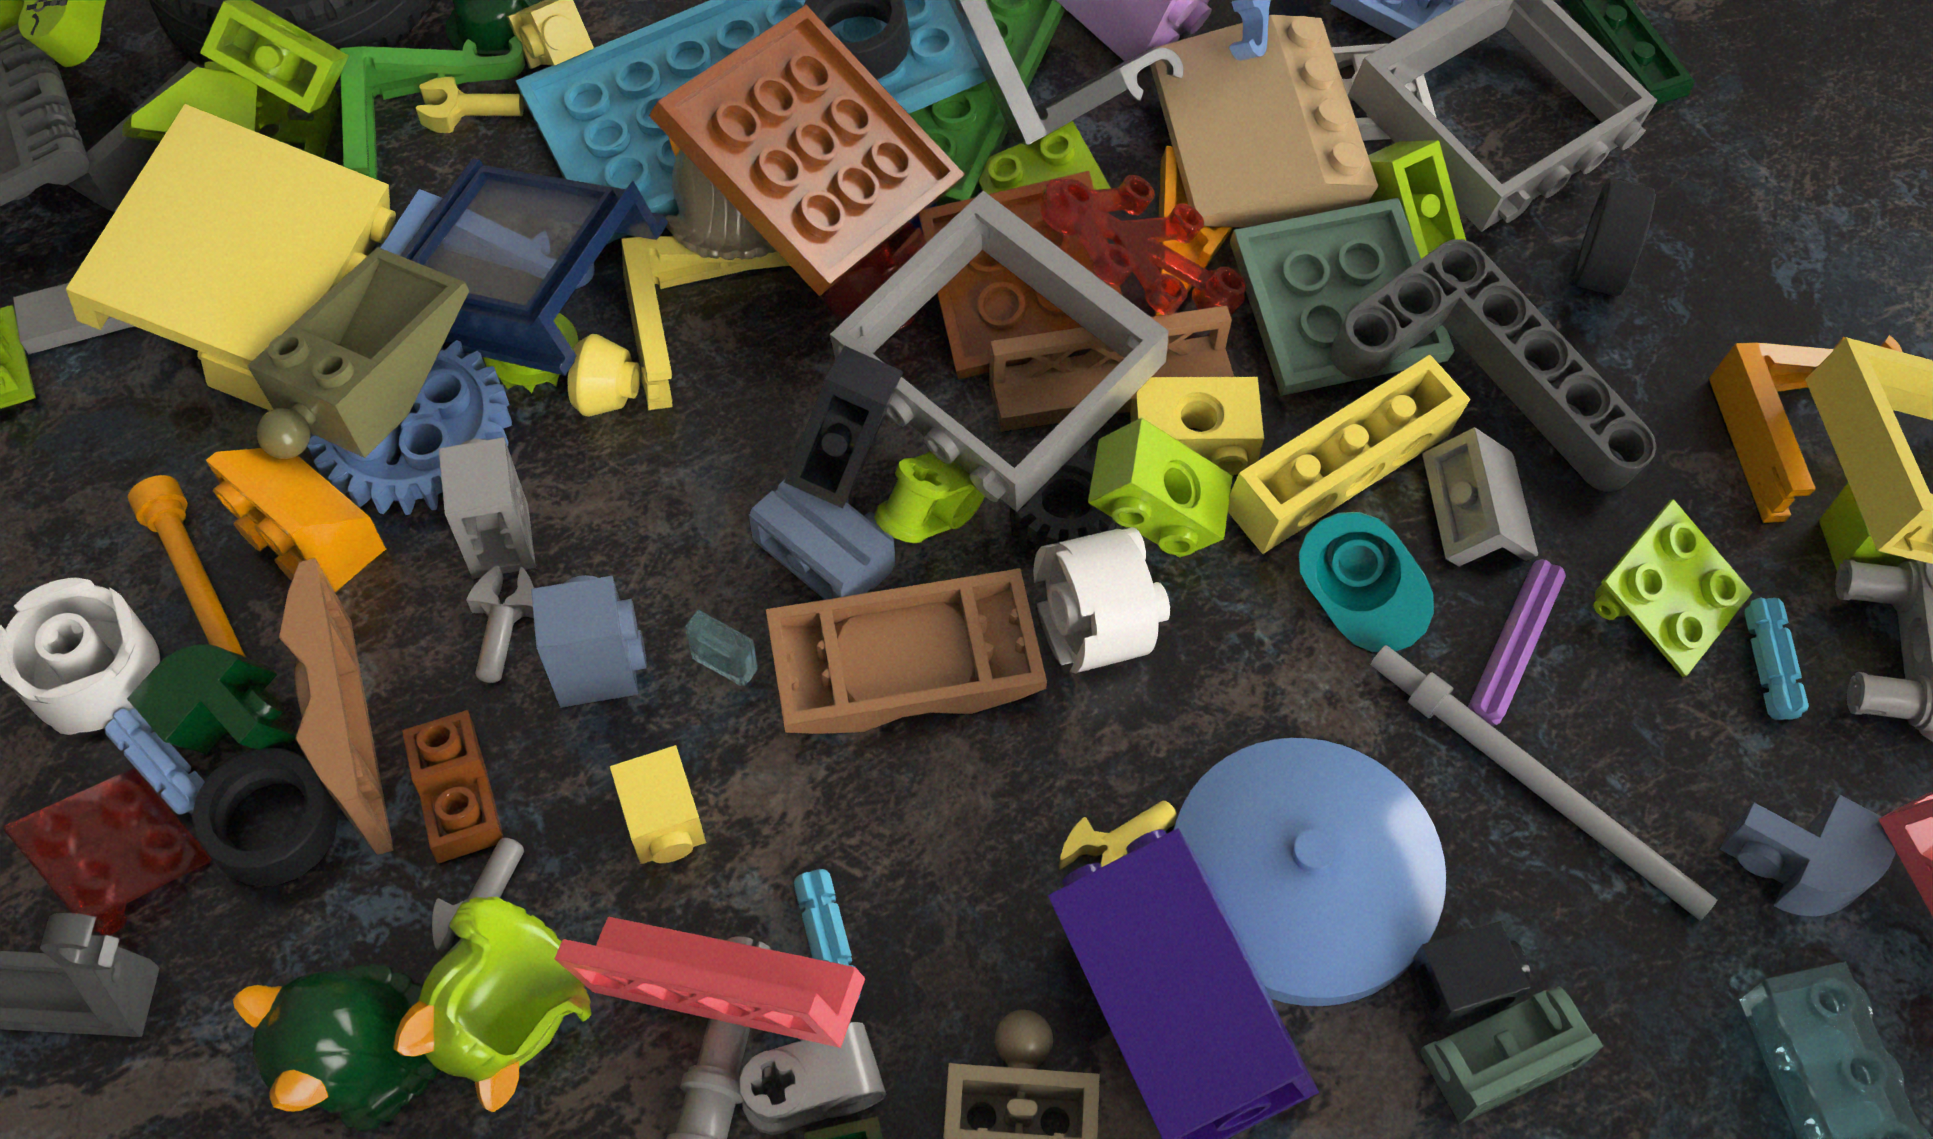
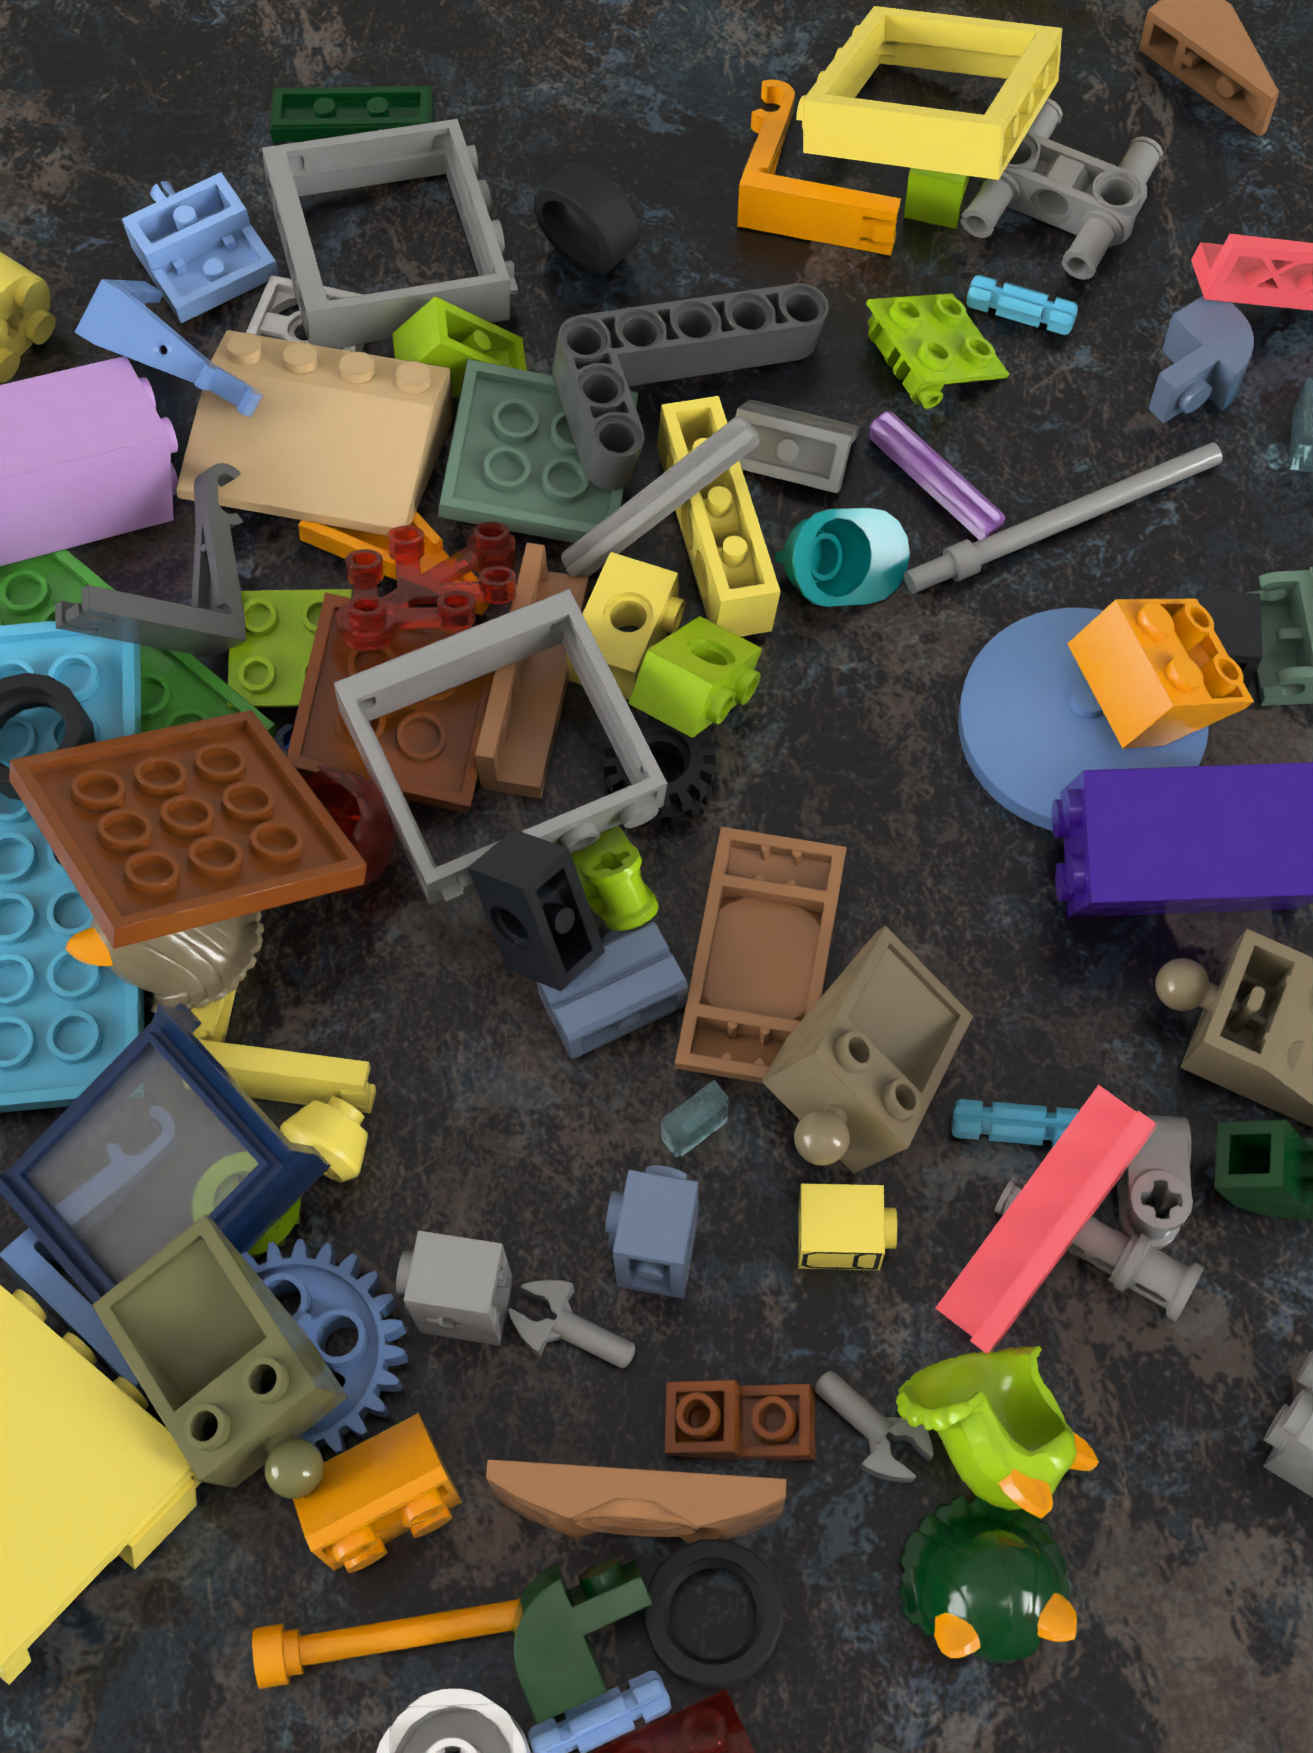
camera: 65 degrees left, 5 degrees up
(845, 776) = (868, 1057): none -> dark tan slope
(1099, 599) = (787, 770): white brick -> none
(1113, 845) = (1009, 859): light yellow bar -> none
(1331, 388) = (661, 497): none -> light grey axle
(1372, 901) = (1158, 670): none -> light orange slope

